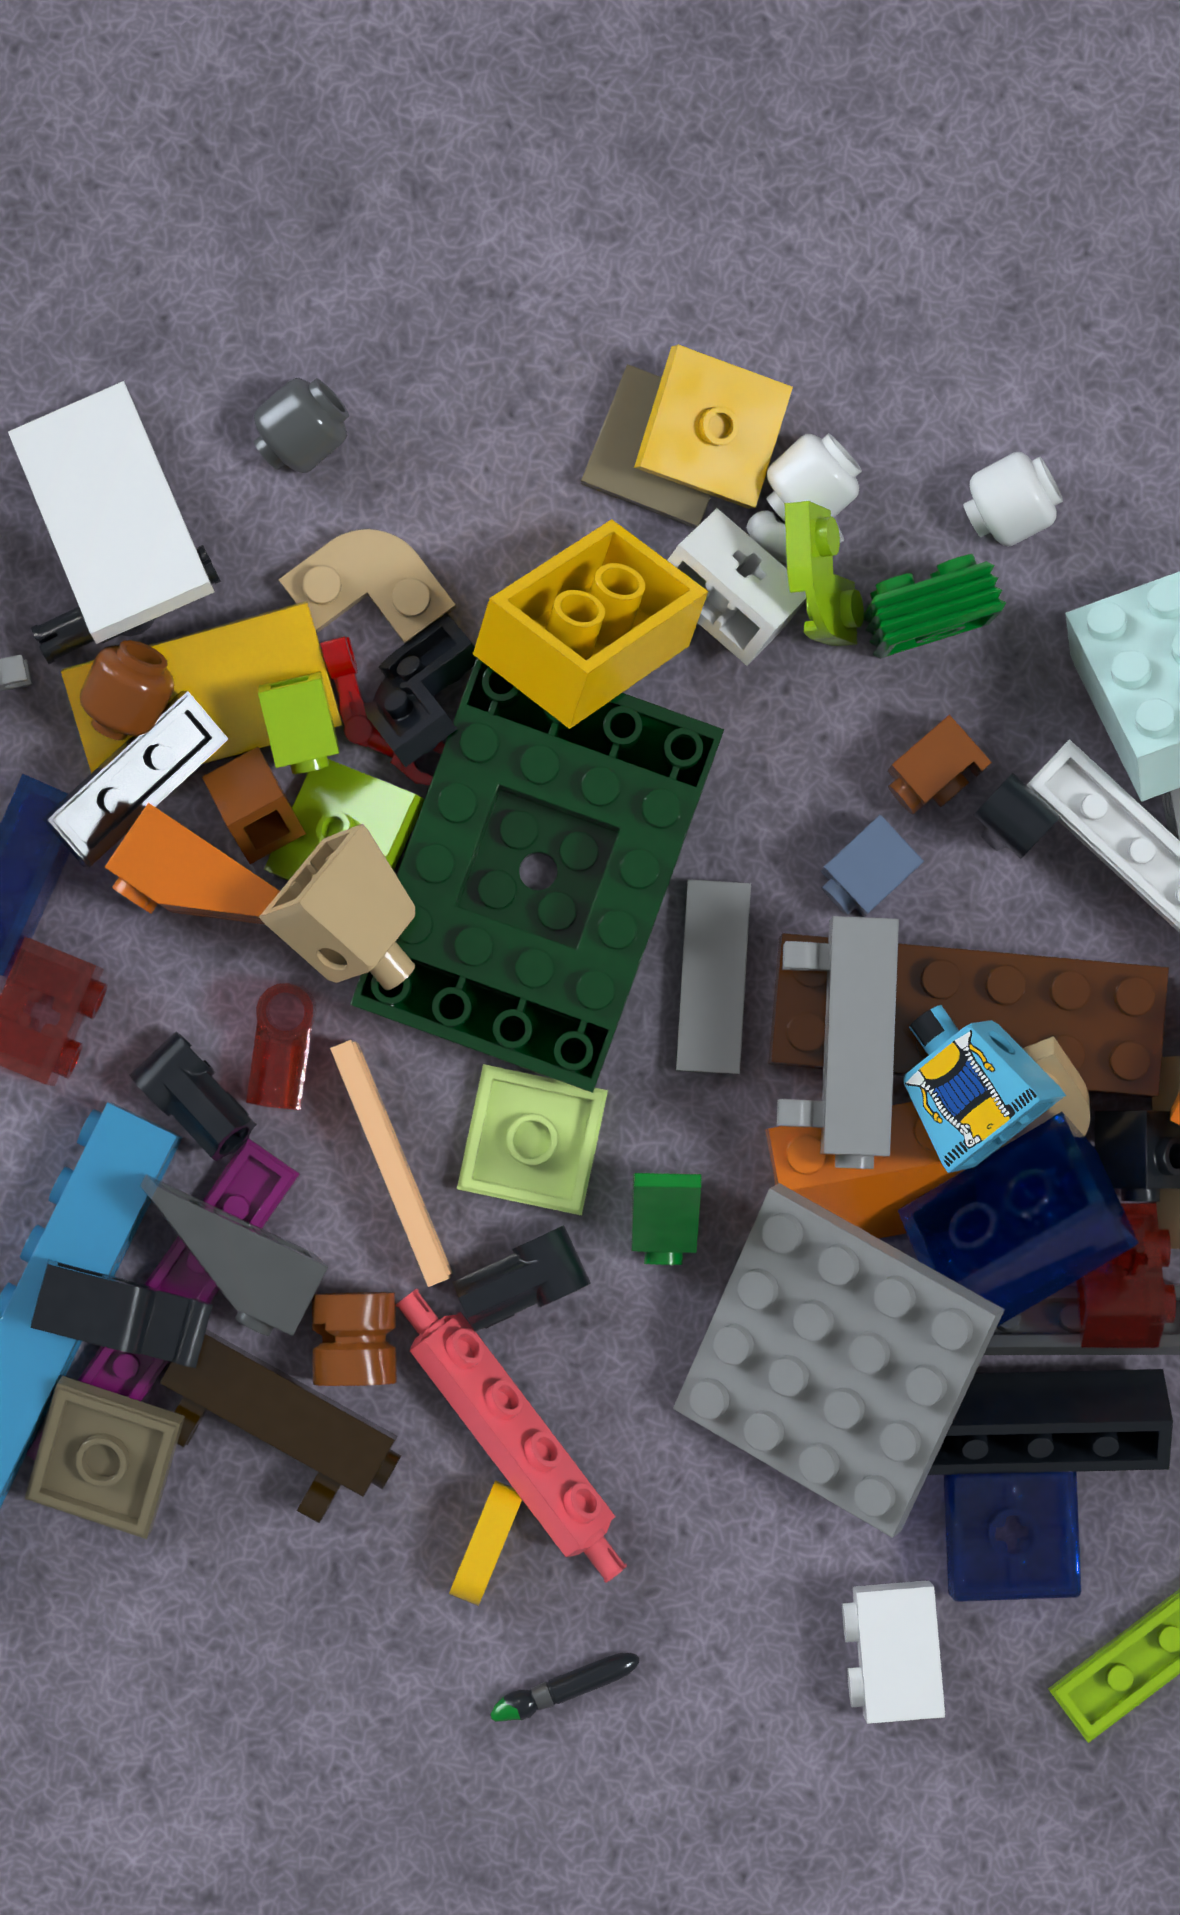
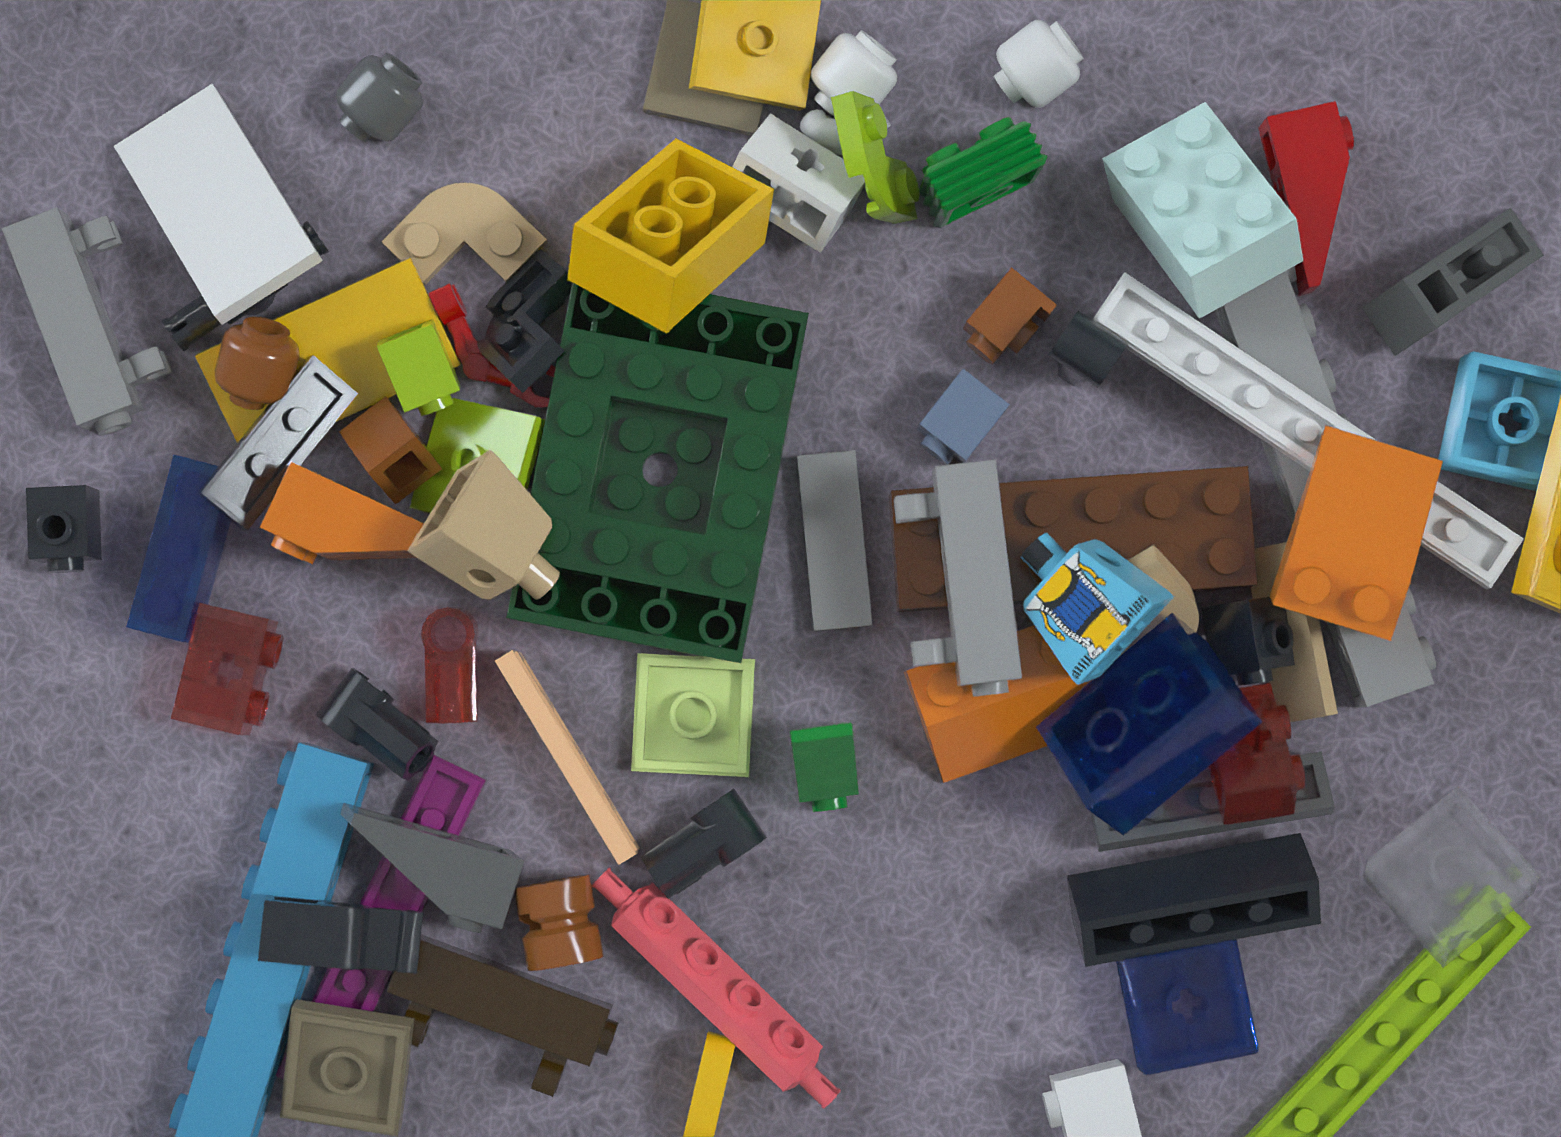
camera: 10 degrees left, 0 degrees up
(837, 1359) = (1003, 871): light grey plate -> none

